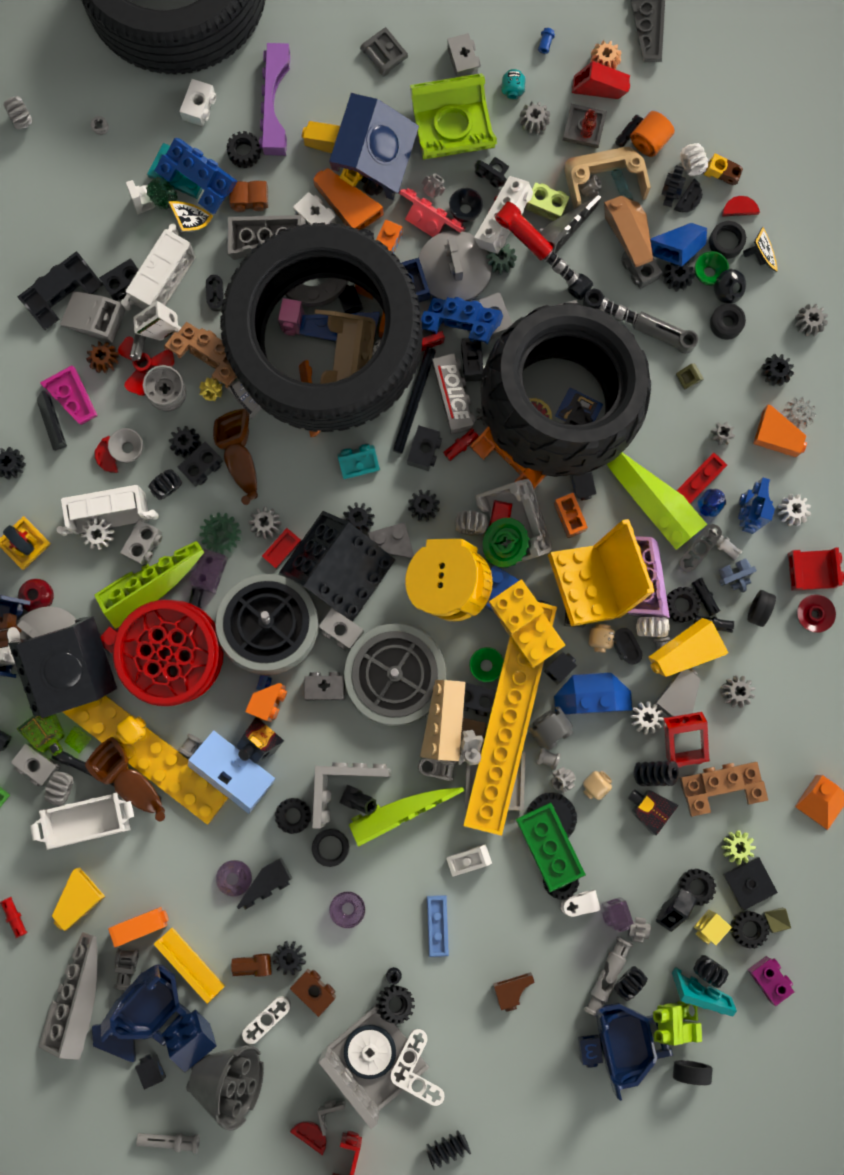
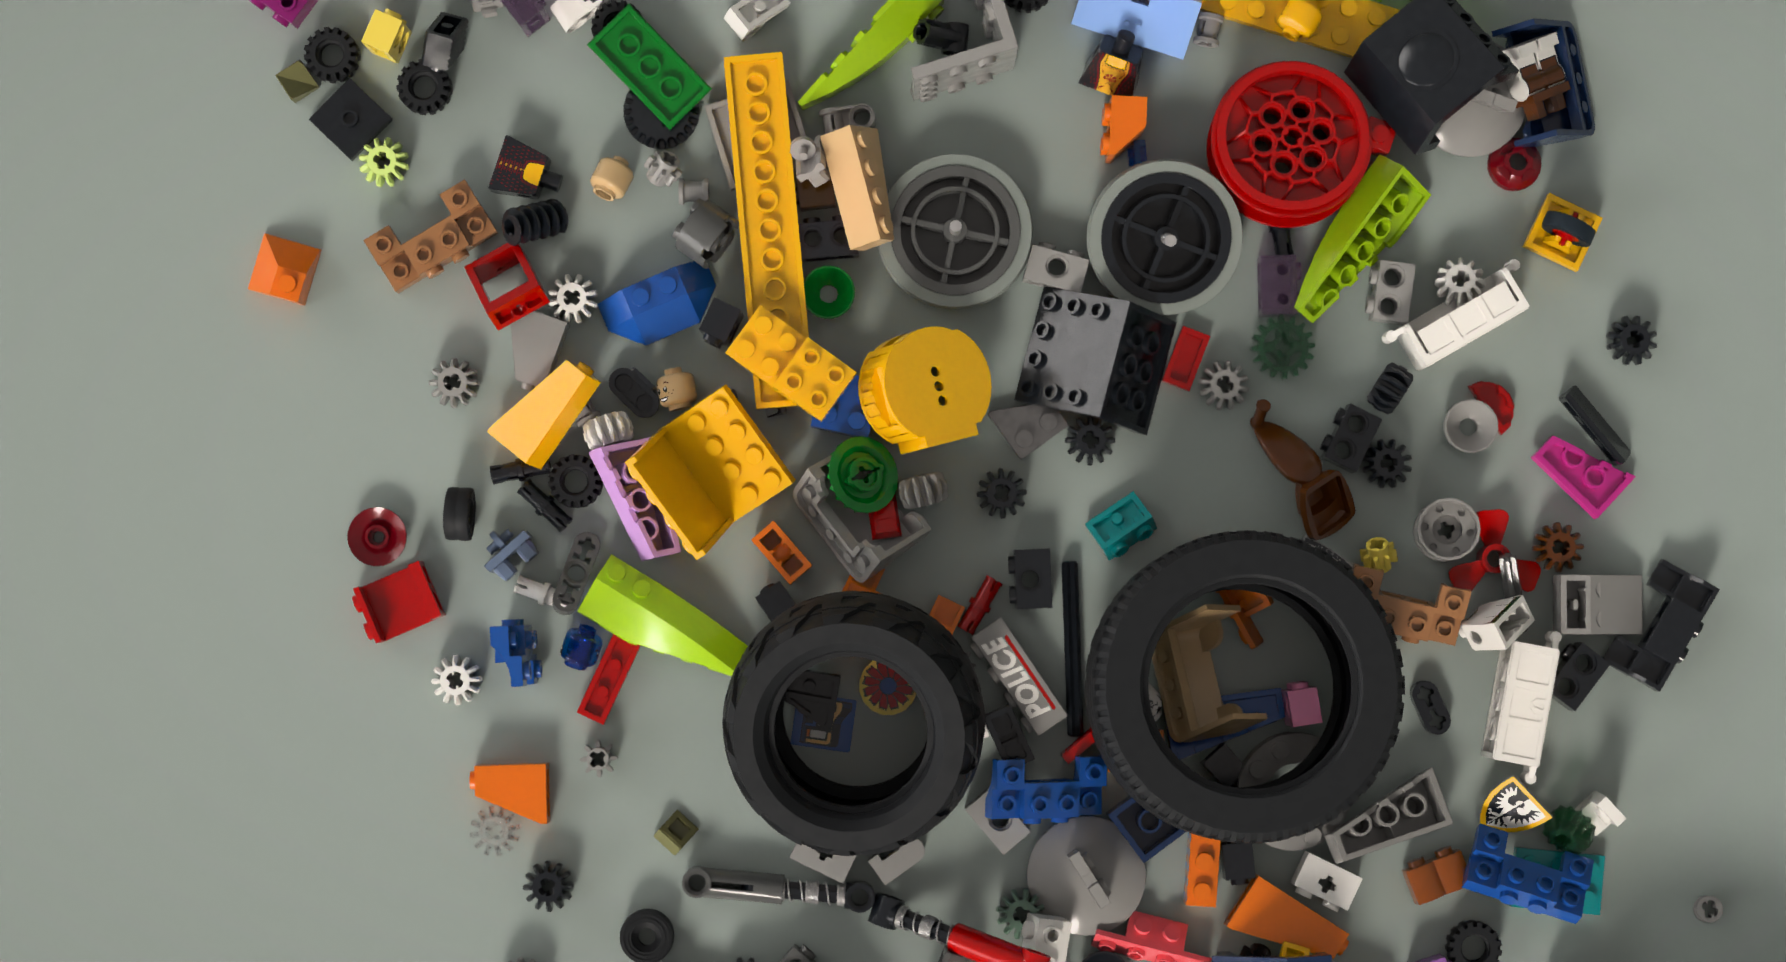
camera: 160 degrees right, 5 degrees up
(334, 692) = (1058, 166): flat silver brick -> none

